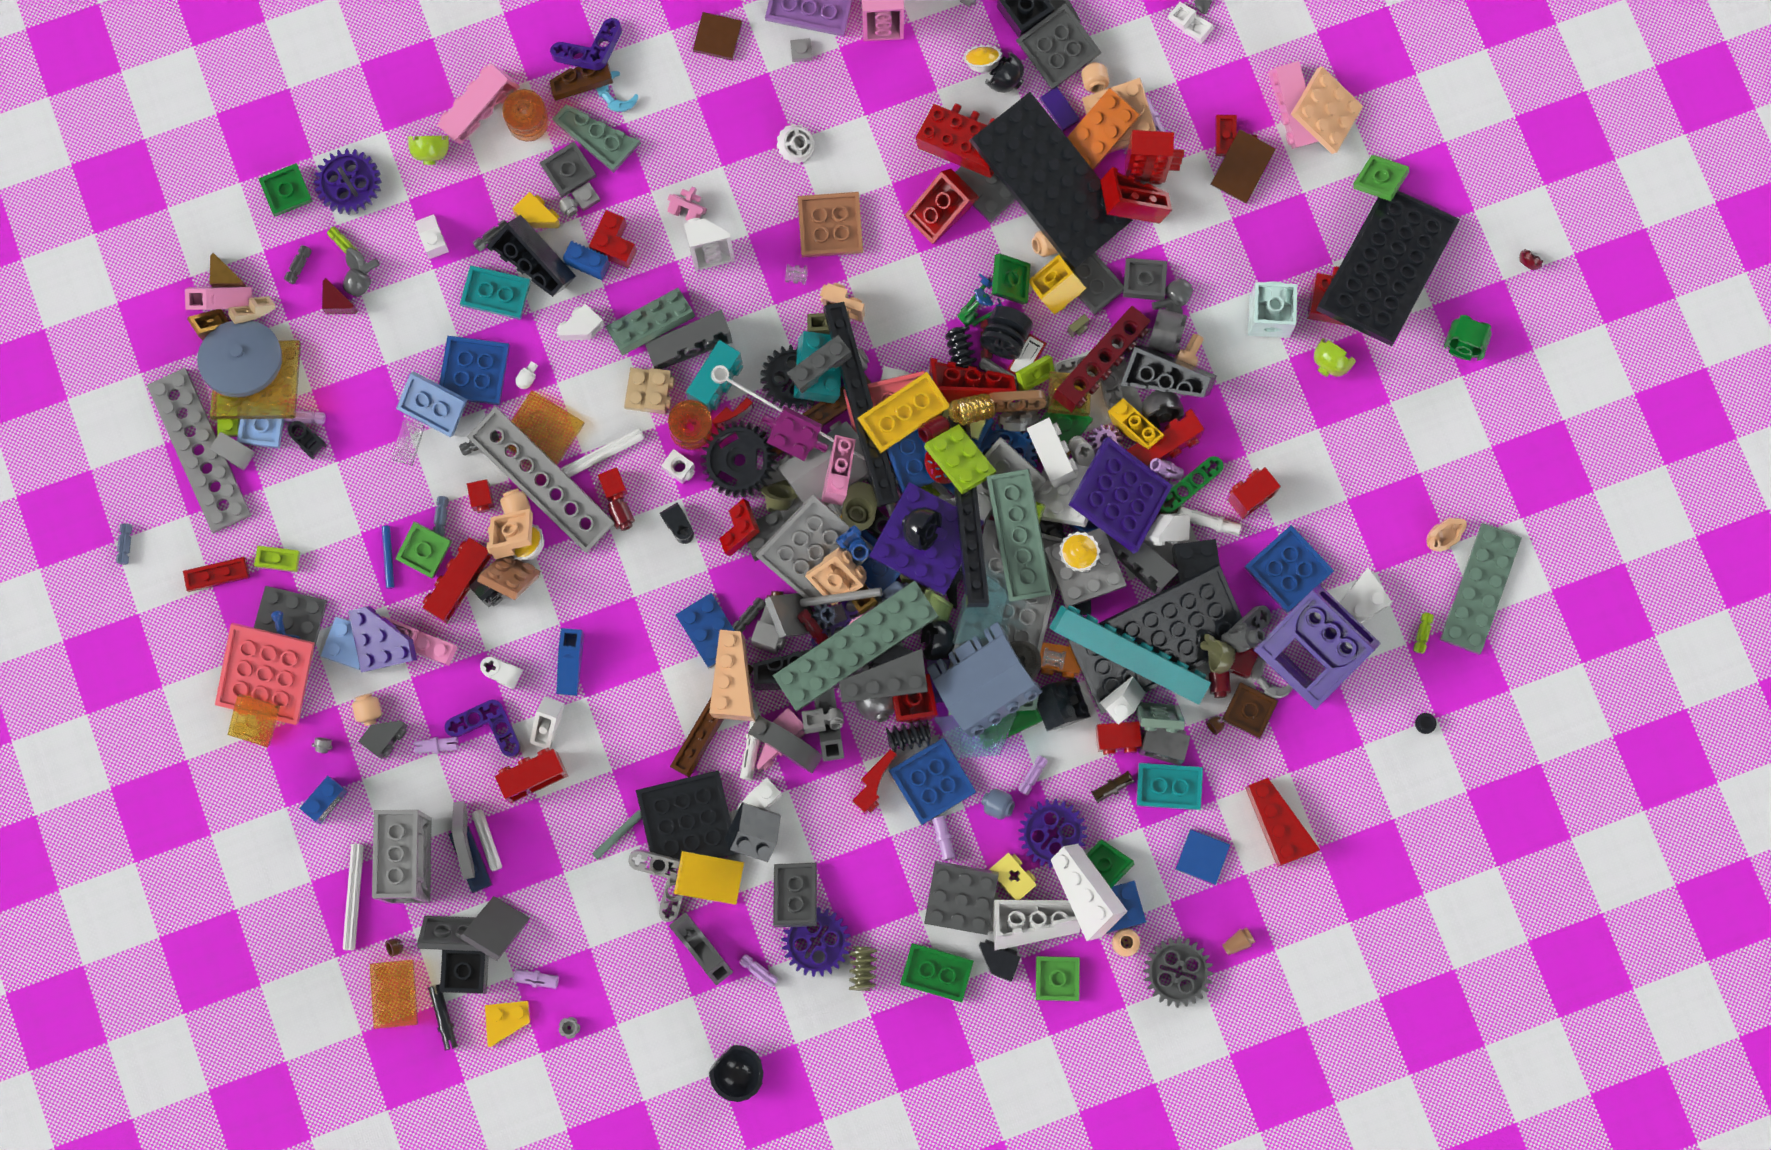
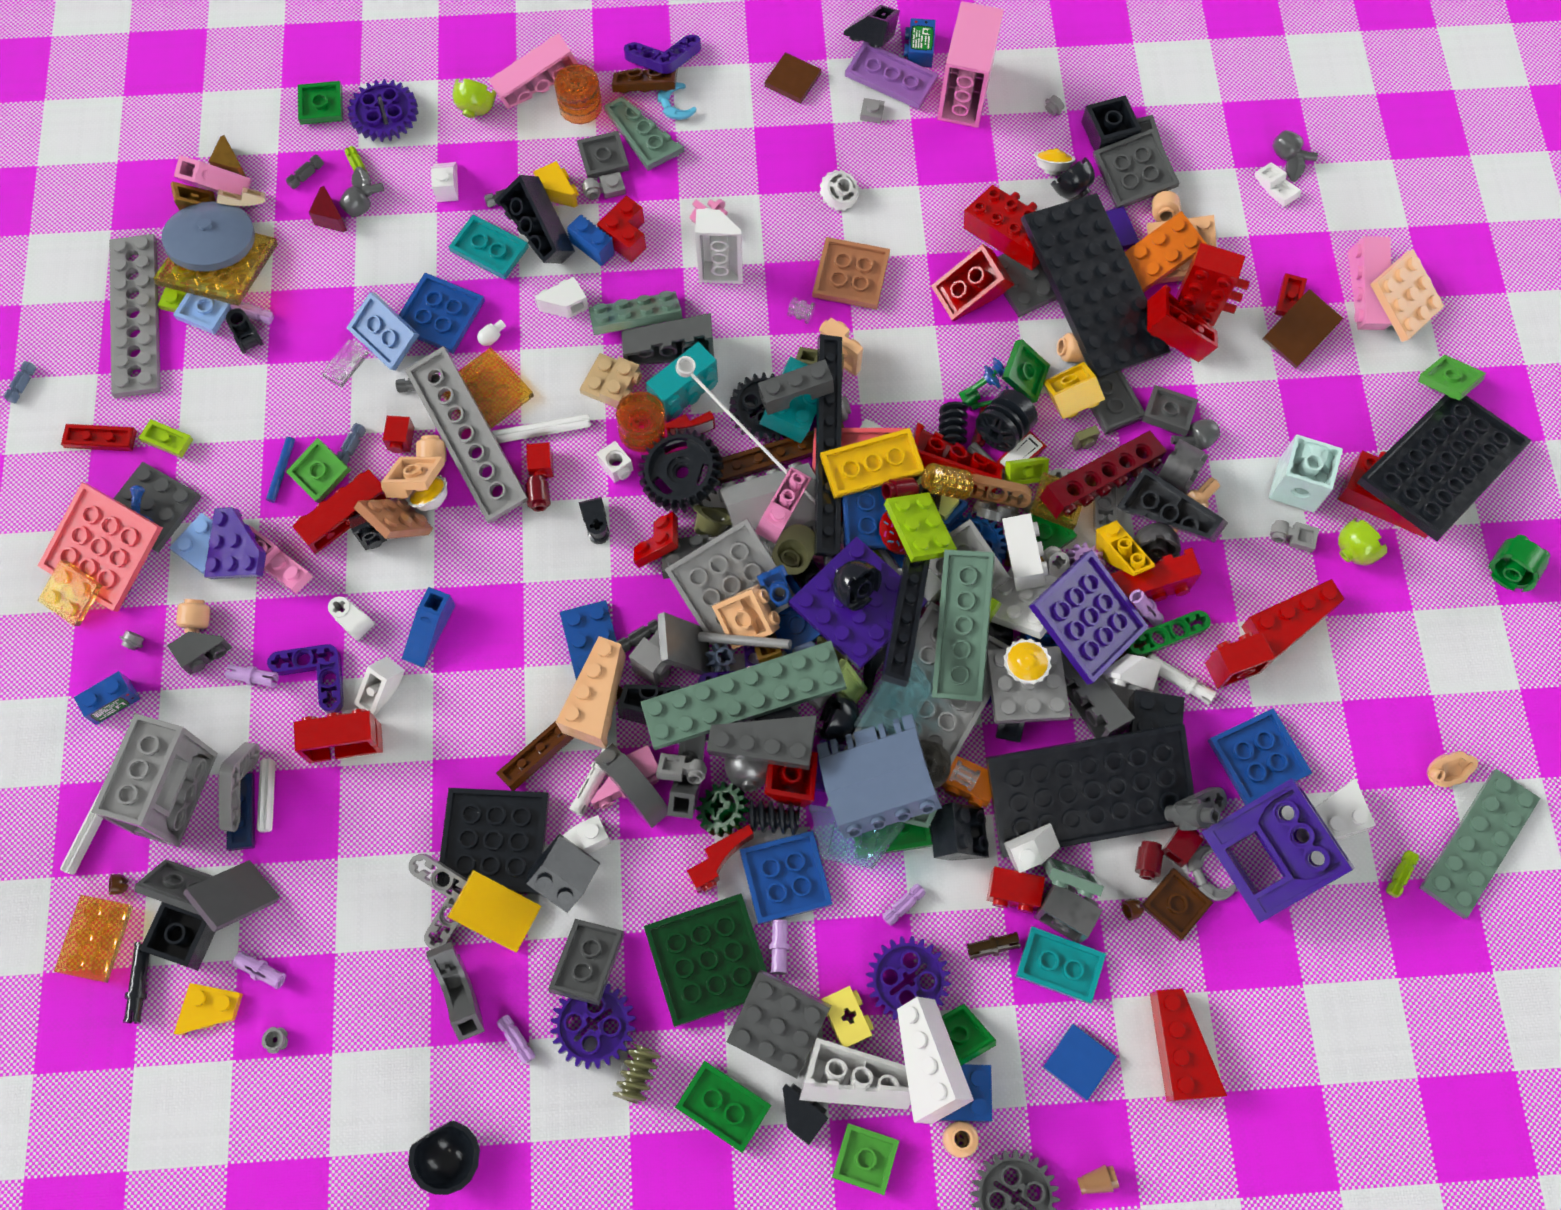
camera: 15 degrees right, 10 degrees down
(232, 451) = (165, 322): light grey panel -> none
(617, 835) = (411, 833): sand green bar -> none
(794, 433) = (747, 453): magenta plate -> none
(812, 626) = (701, 661): dark red axle -> none
(862, 739) = (722, 809): none -> dark green gear
(888, 864) = (705, 959): none -> dark green plate
(998, 804) = (854, 925): sand blue head -> none
(1129, 654) = (1055, 796): teal brick -> none
(1220, 654) = (1159, 826): olive piece -> none
(1283, 364) = (1301, 535): none -> light grey plate
(1289, 443) = (1294, 617): none -> red wedge
(1425, 723) = (1384, 980): black plate -> none

